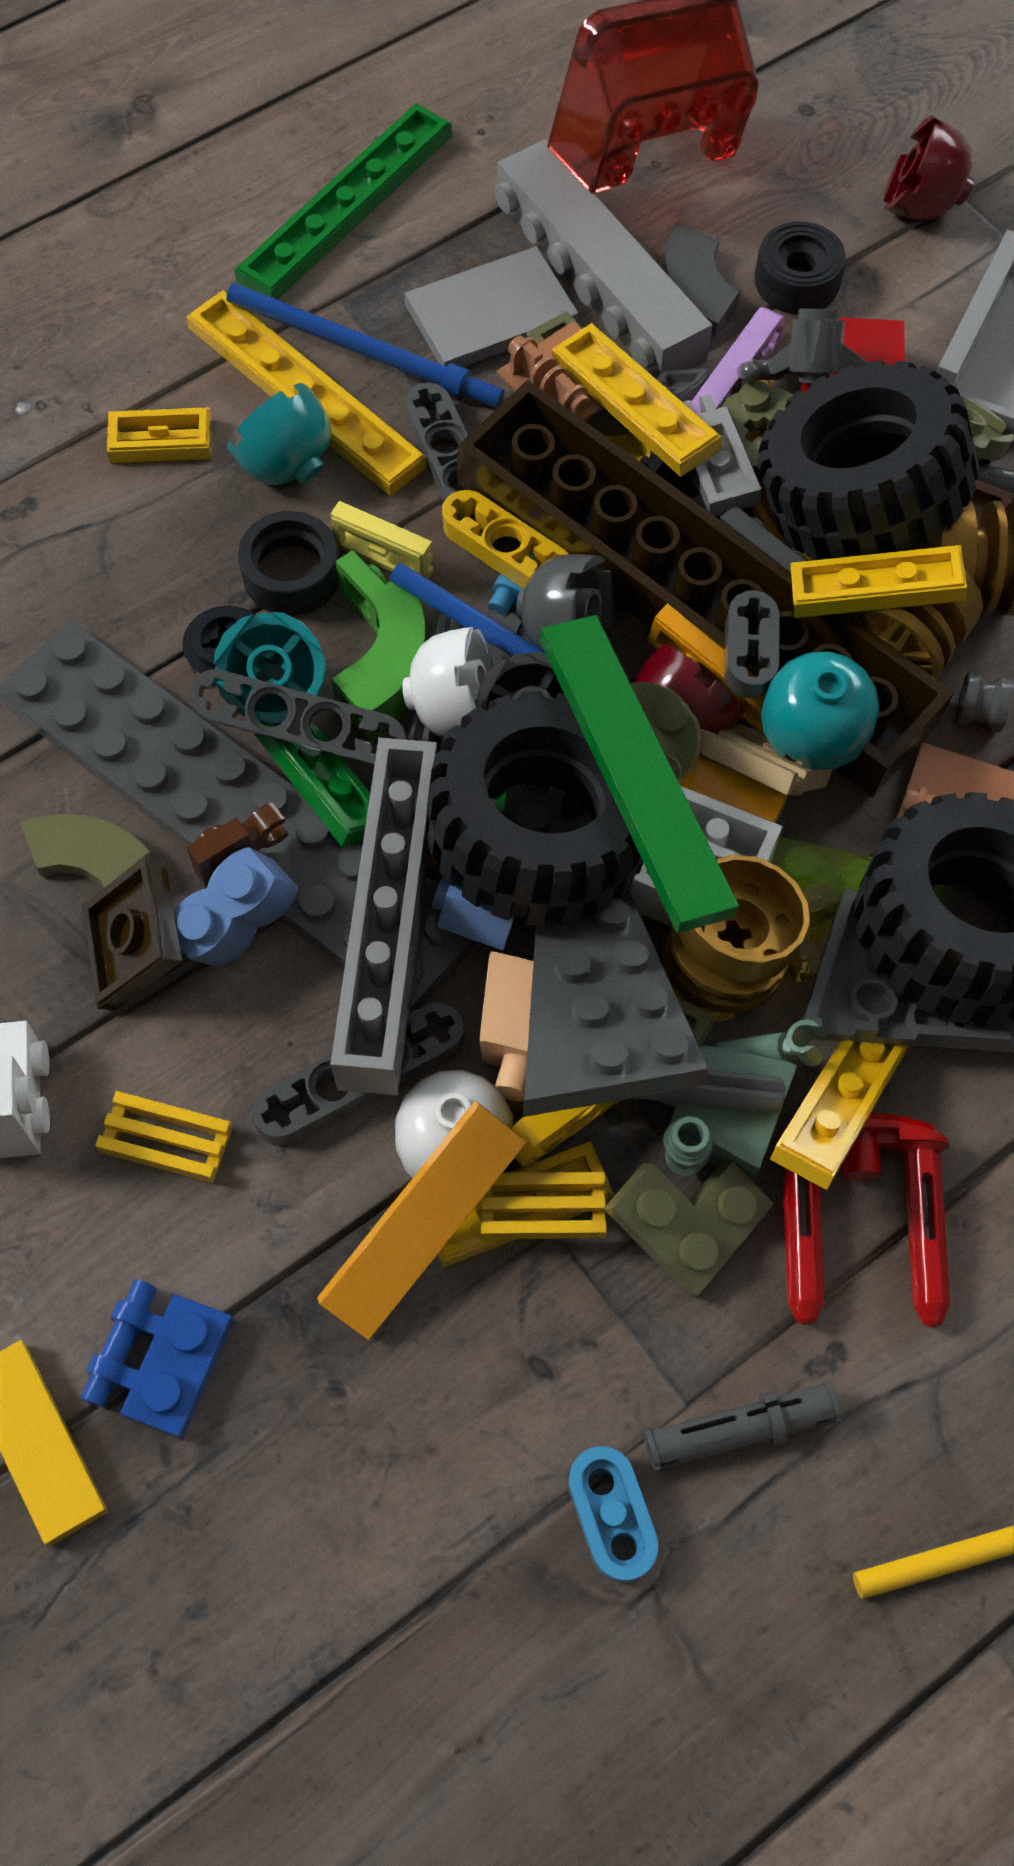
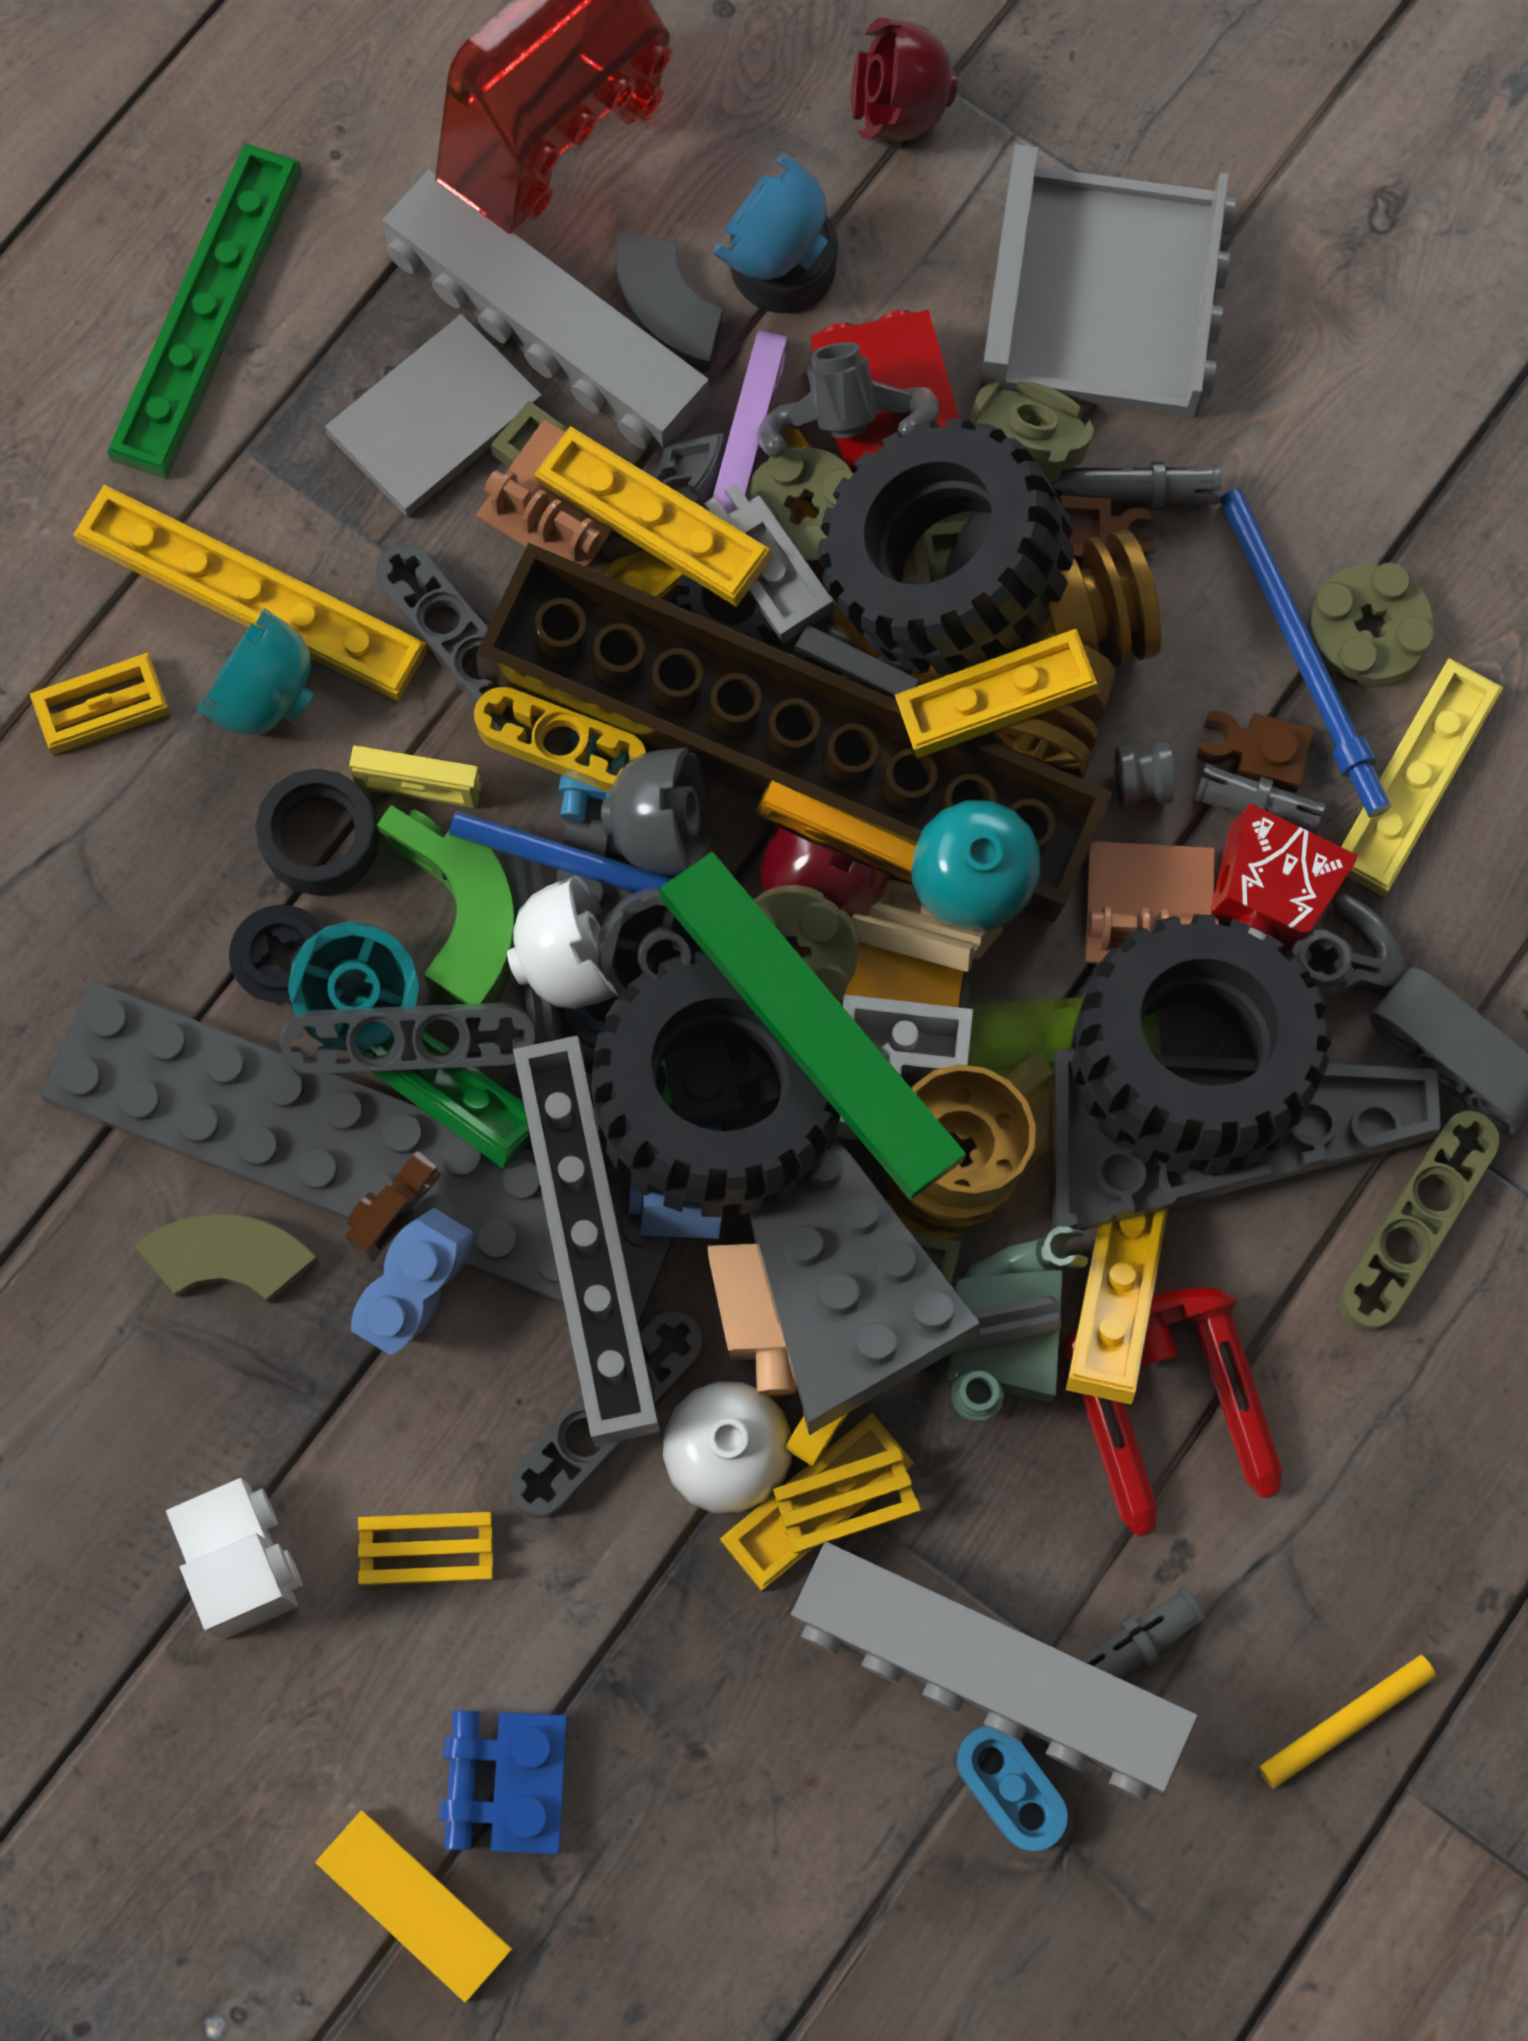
camera: 20 degrees left, 10 degrees up
(131, 932) = (312, 1341): dark brown tile -> none
(421, 1220) = (731, 1559): light orange tile -> none
(453, 377) = (422, 528): blue bar -> none
(634, 1398) = (994, 1670): none -> light grey brick
(691, 1236) = (1005, 1482): olive plate -> none
(740, 643) = (894, 803): dark grey beam -> none
(800, 224) = (777, 224): none -> dark azure cylinder

